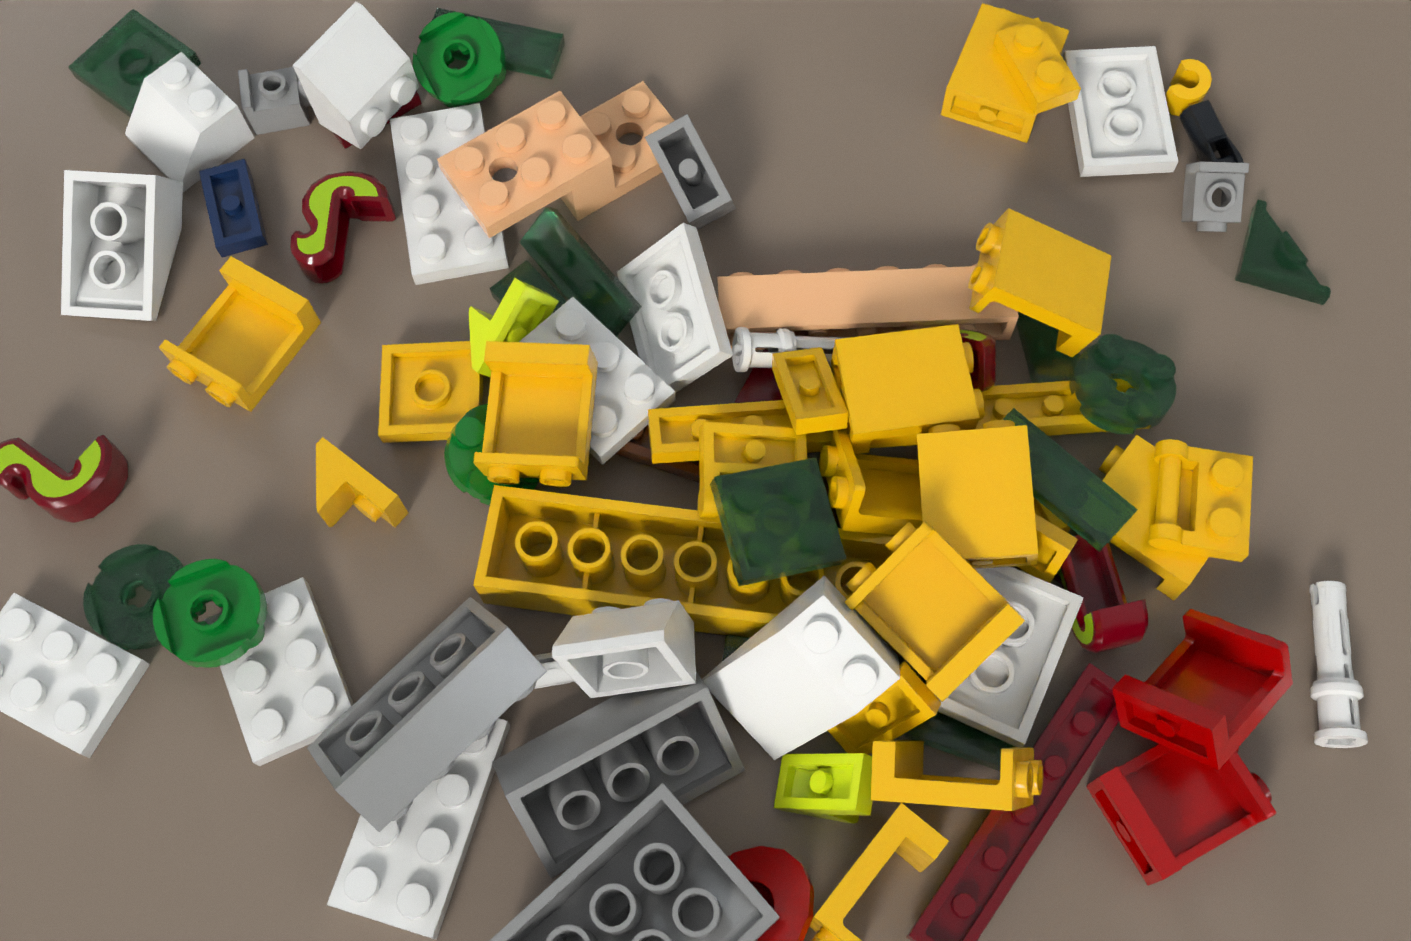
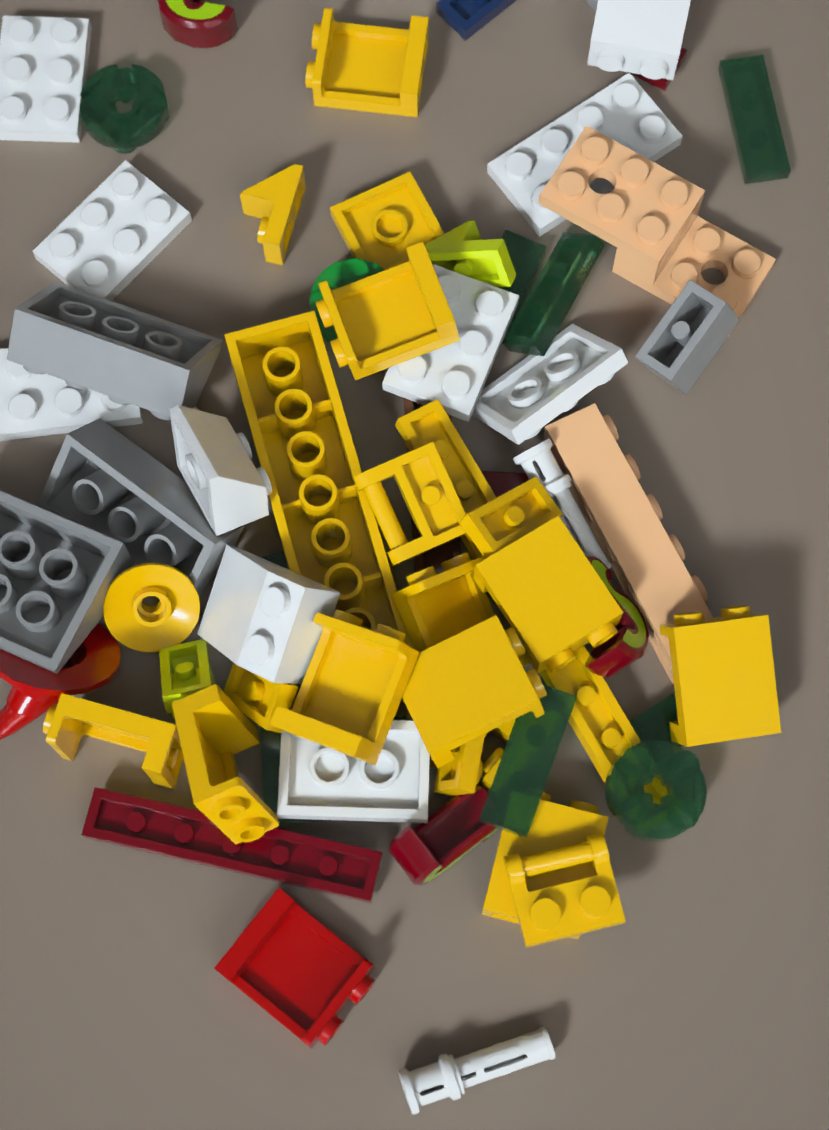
camera: 65 degrees right, 5 degrees up
(235, 630) = (125, 184): green plate -> none
(328, 212) = (506, 72): dark red animal -> none
(434, 54) = (730, 115): green plate -> none
(733, 791) = (154, 626): none -> yellow dish
(777, 521) = (373, 537): clear green plate -> none
(1207, 690) = (390, 953): red panel -> none

